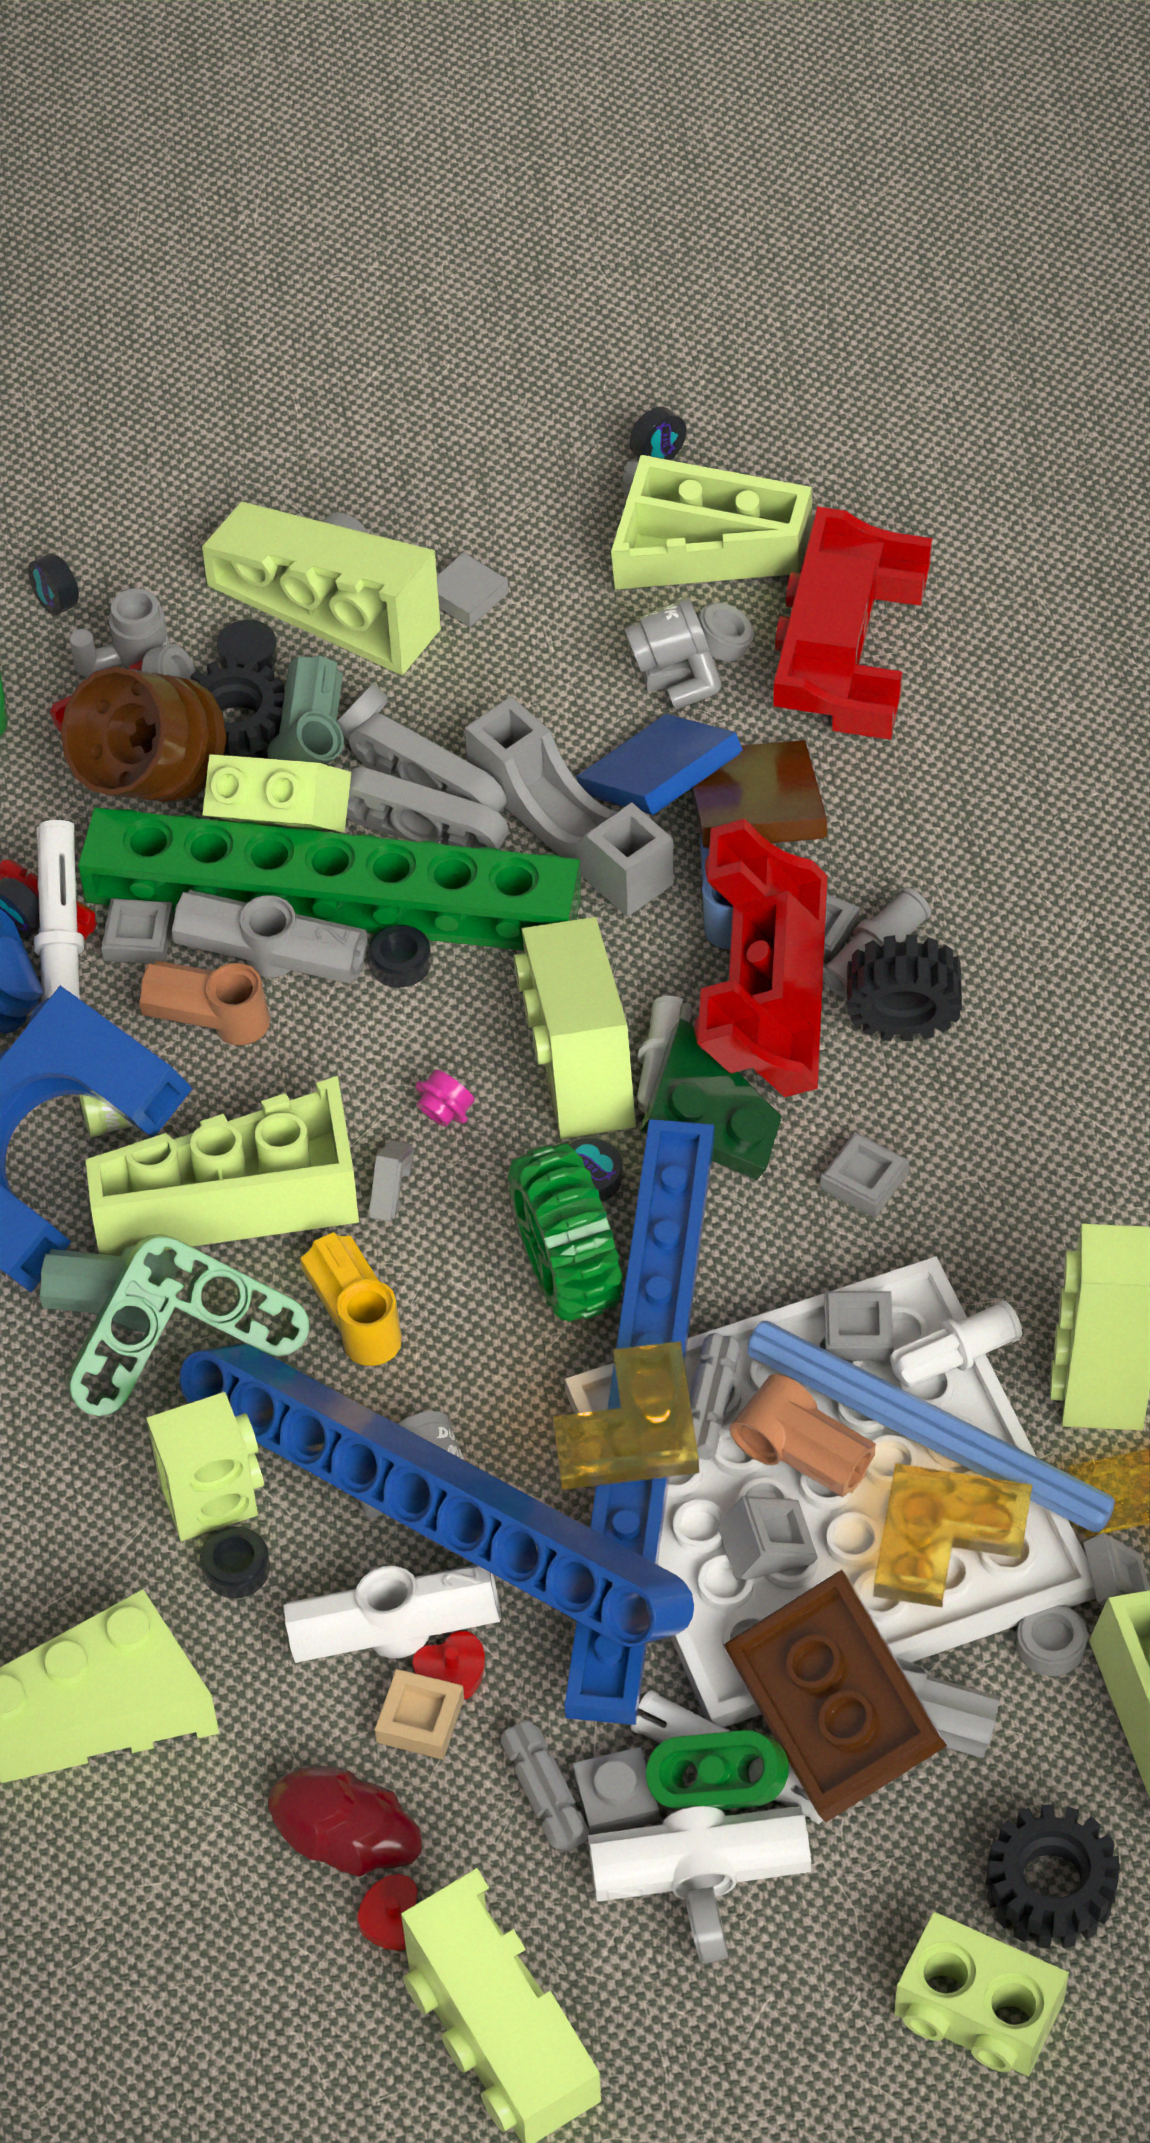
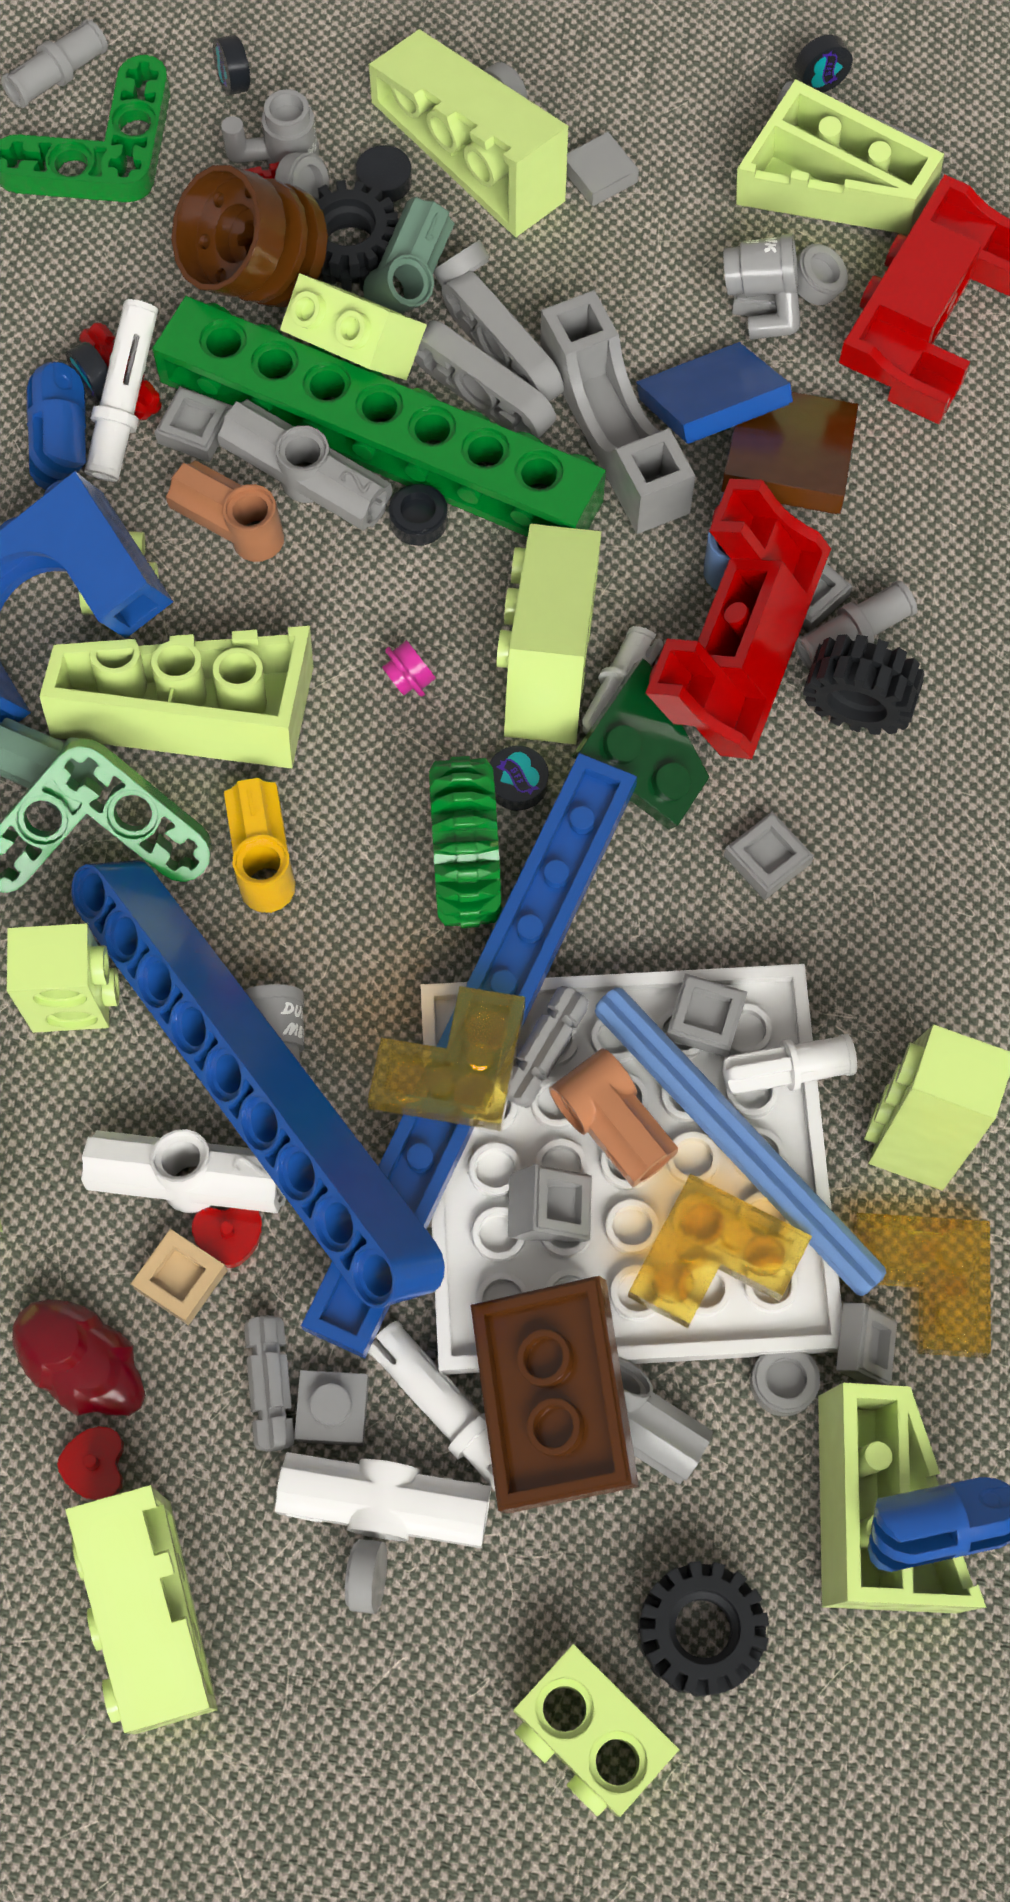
camera: 15 degrees right, 15 degrees up
(235, 1562) = (70, 1070): black tile -> none
(390, 1165) = (328, 732): light grey tile -> none
(721, 1770) = (427, 1432): green plate -> none

